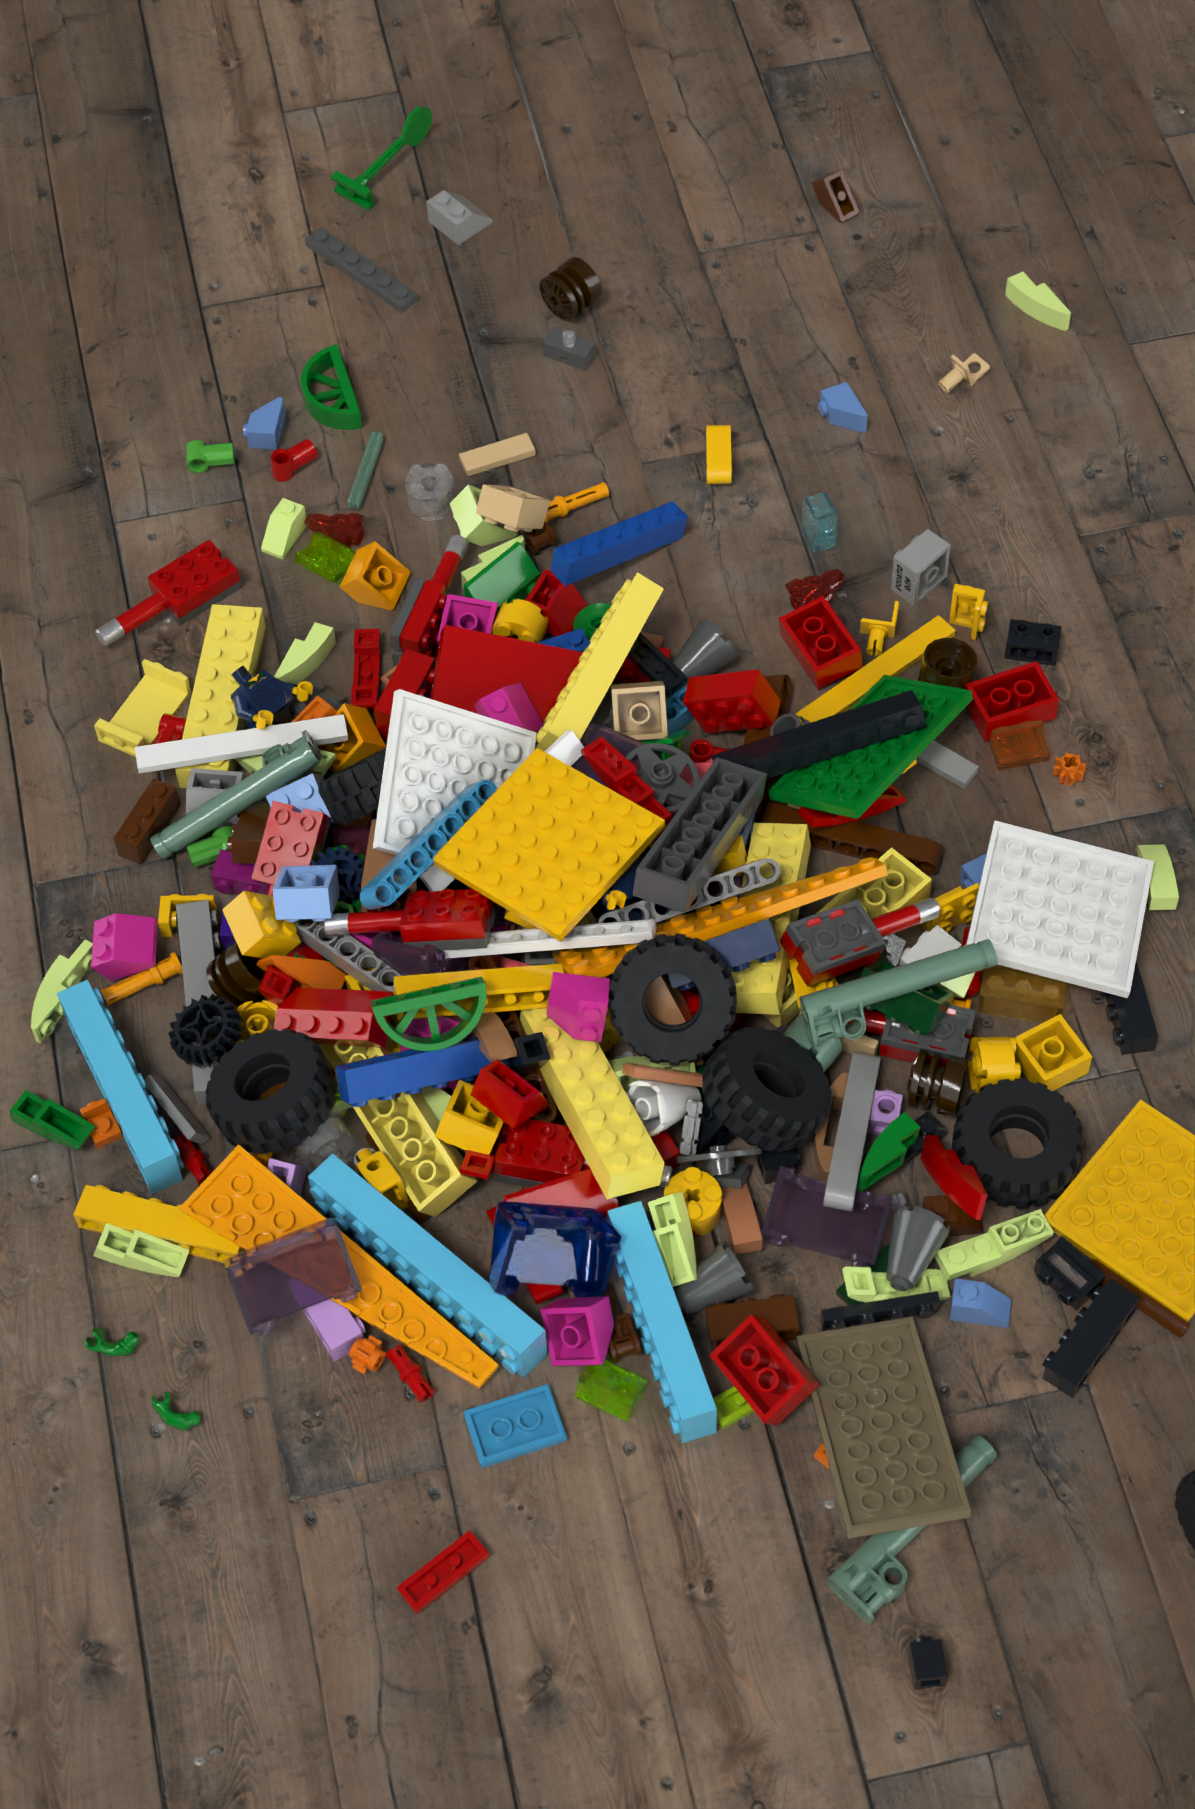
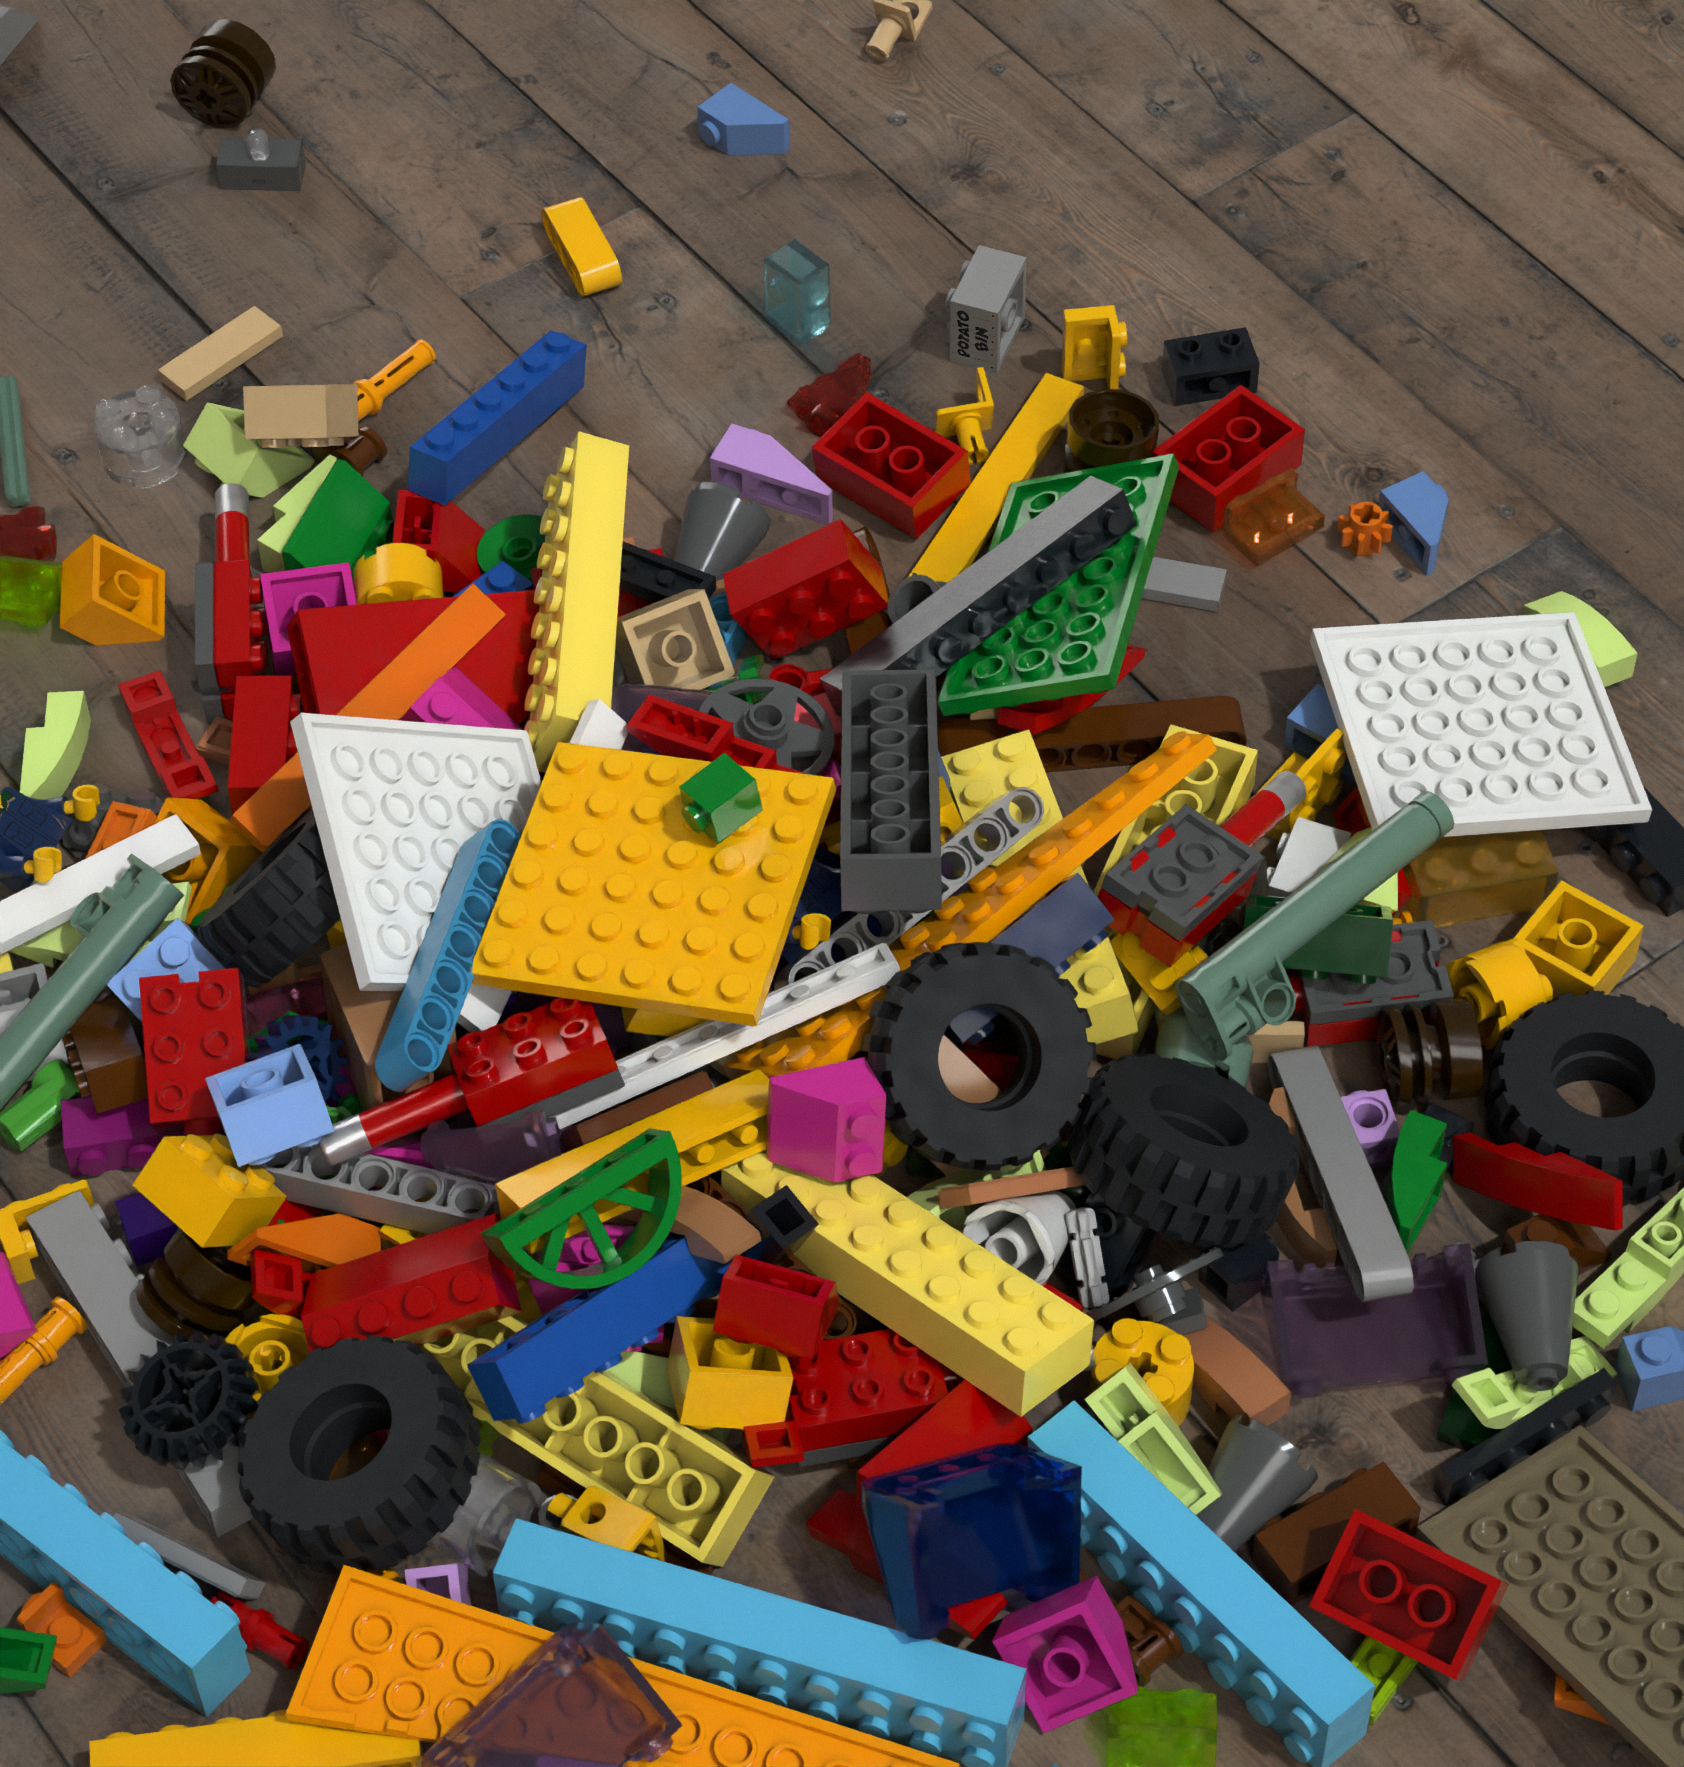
camera: 25 degrees left, 5 degrees down
(471, 689) = (387, 696): none -> orange tile
(488, 963) = (636, 1110): none -> reddish brown tile
(595, 811) = (720, 798): none -> green brick
(749, 619) = (769, 474): none -> lavender slope
(1103, 773) = (1418, 517): none -> medium blue slope

